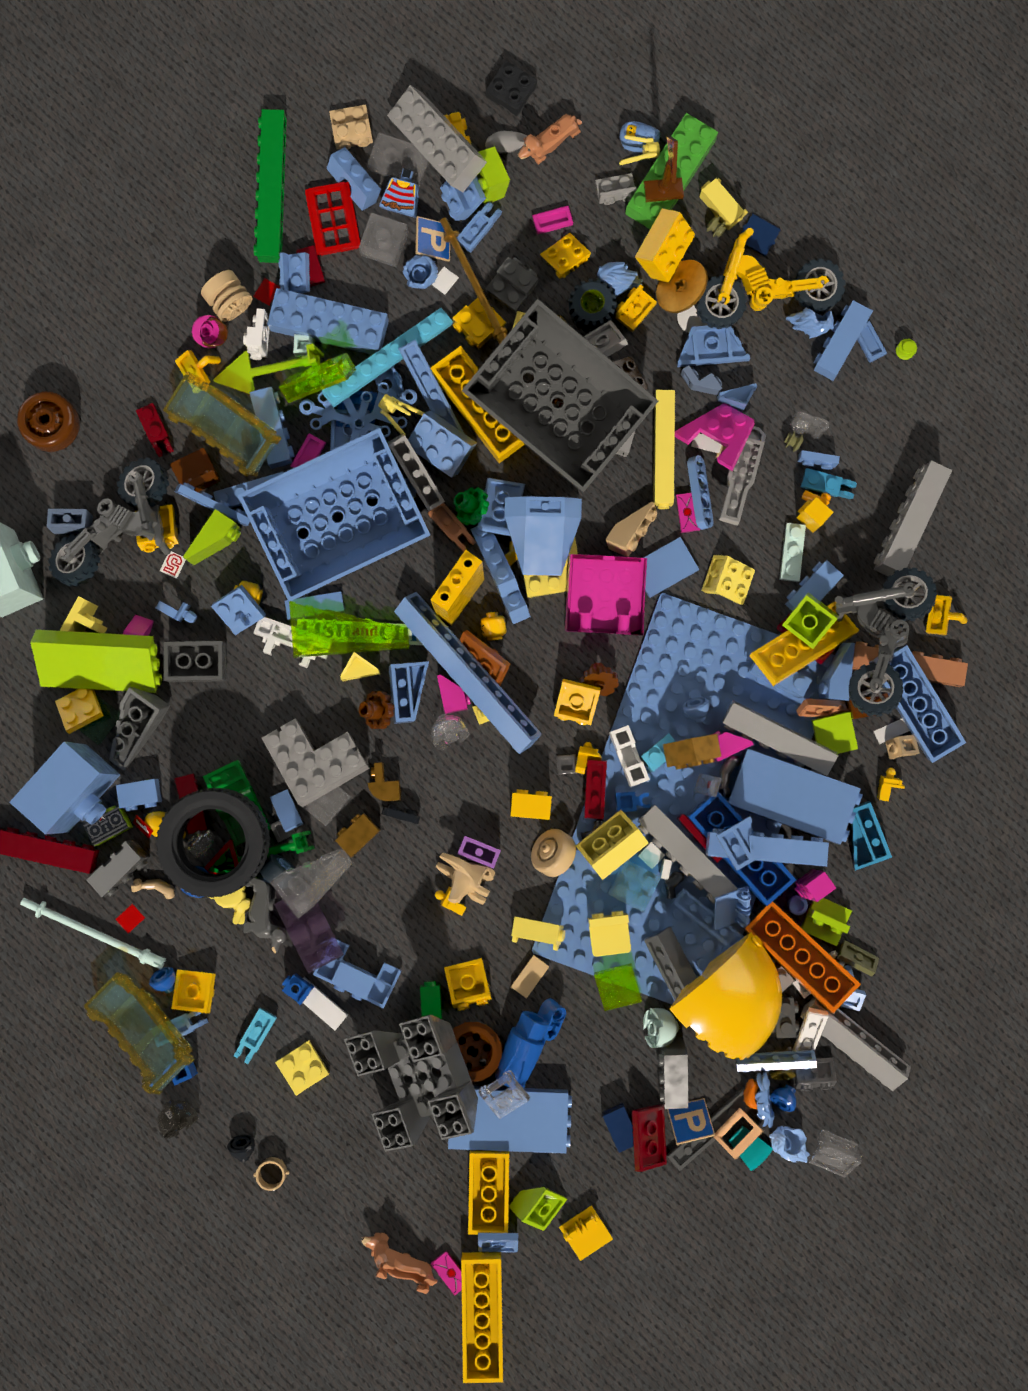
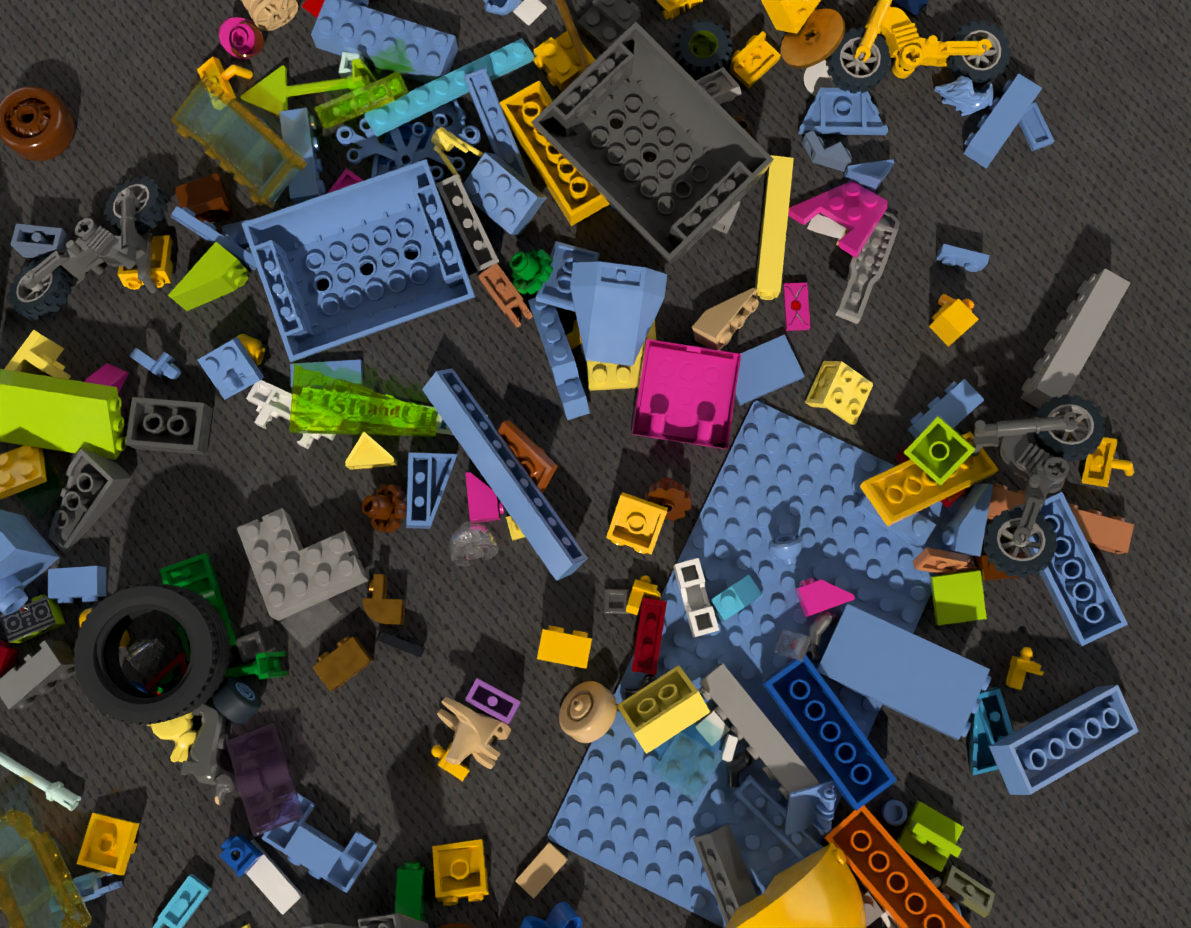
camera: 10 degrees right, 5 degrees down
(130, 918) = (44, 740): red sticker -> none
(142, 826) = (73, 621): red sticker -> none
(154, 428) = (162, 145): dark red hinge -> none
(158, 884) = (76, 699): tan arm -> none
(163, 980) = (72, 825): blue brick -> none
(173, 564) = (161, 308): white sticker -> none
(187, 785) = (147, 623): dark red tile -> none
(258, 336) = (298, 47): white plate -> none
(286, 810) = (257, 623): medium blue tile -> none
(307, 884) = (268, 720): clear wedge -> none
(458, 587) = (500, 362): yellow brick -> none
(493, 626) = (543, 420): yellow head -> none
(538, 931) = (557, 812): light yellow brick -> none
(609, 933) = (649, 825): light yellow bracket -> none
(618, 277) = (738, 21): medium blue hair -> none
(618, 987) = (653, 896): clear neon green plate -> none
(628, 801) = (689, 656): blue plate -> none
(692, 751) = (776, 600): pearl gold brick -> none
(694, 831) = (776, 712): dark red tile -> none
(700, 492) = (813, 283): medium blue beam -> none
(738, 843) = (826, 724): medium blue wing -> none
(777, 849) = (863, 735): medium blue brick -> none
(779, 737) = (889, 595): light grey brick -> none
(792, 552) = (921, 367): light aqua plate -> none
(793, 441) = (933, 233): olive wheel -> none
(803, 423) = (948, 208): clear plate -> none
(814, 885) = (920, 790): dark pink brick -> none
(826, 483) = (969, 287): dark azure hinge -> none
(891, 731) = (1029, 600): white sticker -> none
(902, 746) = (1042, 621): tan bracket -> none
(906, 349) = (1078, 138): lime wheel -> none
(922, 836) = (1063, 740): none -> medium blue brick

